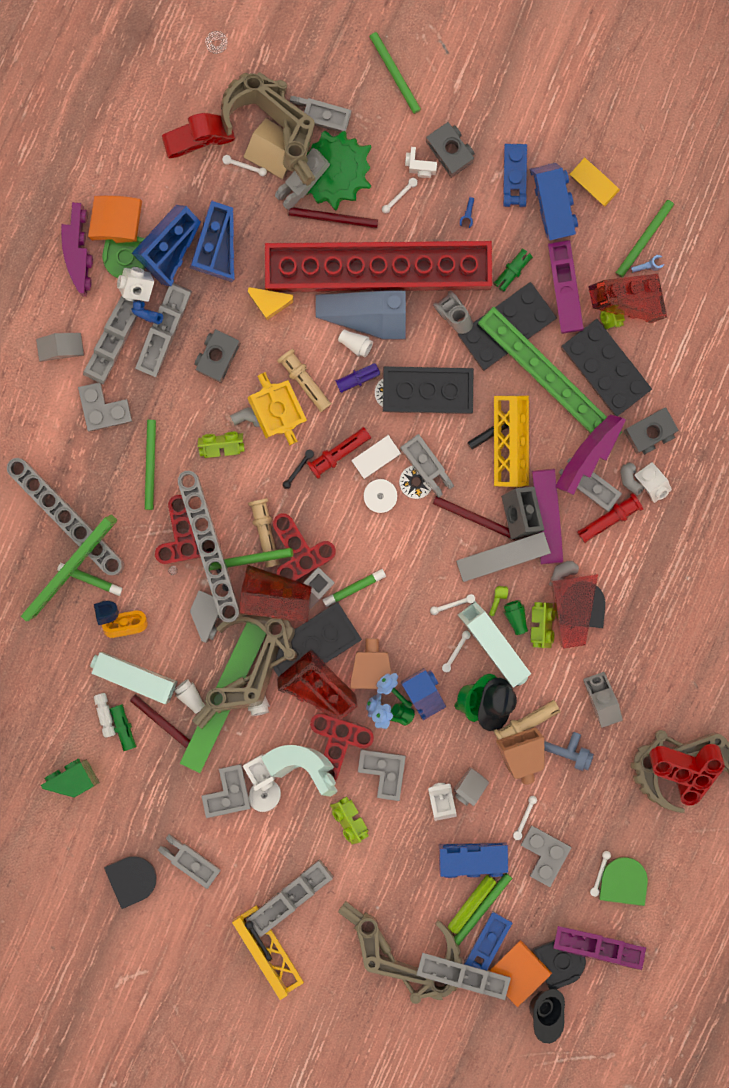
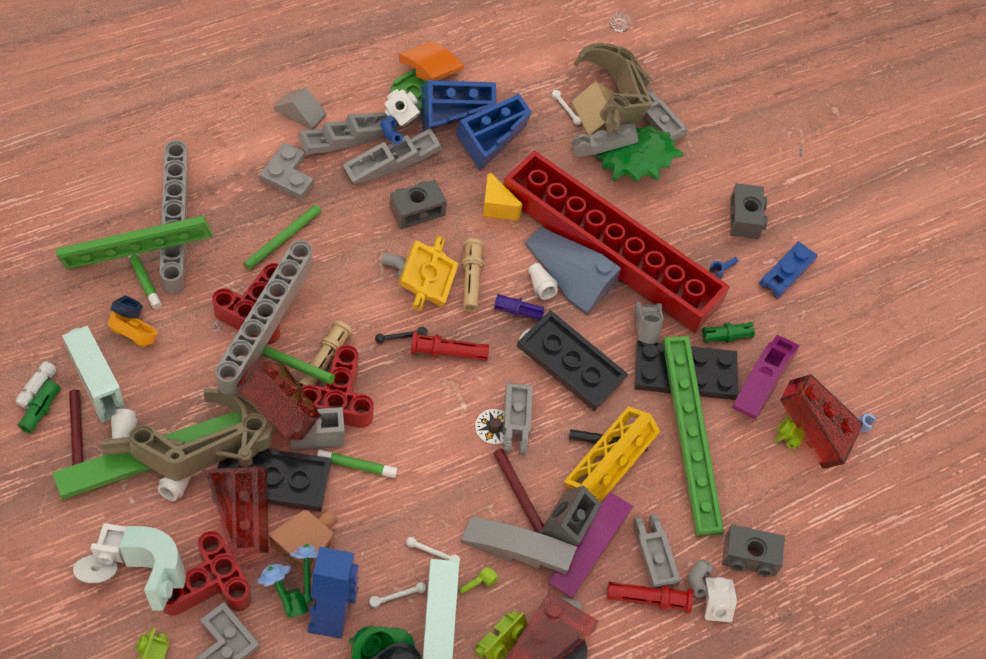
camera: 25 degrees right, 30 degrees down
(76, 258) = (377, 59): magenta slope -> none
(200, 132) = (554, 53): red beam -> none
(205, 615) = (202, 376): light grey slope -> none
(230, 441) = (364, 270): lime hinge -> none
(234, 793) = (65, 545): light grey plate -> none
(333, 217) = (606, 188): dark red bar -> none
(376, 457) = (478, 377): white tile -> none
(380, 495) = (452, 409): white piece -> none
(395, 73) = (745, 137): bright green bar -> none
(412, 183) = (694, 214): white hinge -> none
(422, 168) = (711, 204): white bracket -> none
(516, 616) = (484, 607): green cone -> none
(554, 201) = (810, 305): blue wedge -> none
(594, 182) = (857, 321): yellow slope -> none
(595, 447) = (686, 517): magenta slope -> none
(606, 368) = (751, 471): black plate -> none
(644, 239) = (879, 396): bright green bar -> none

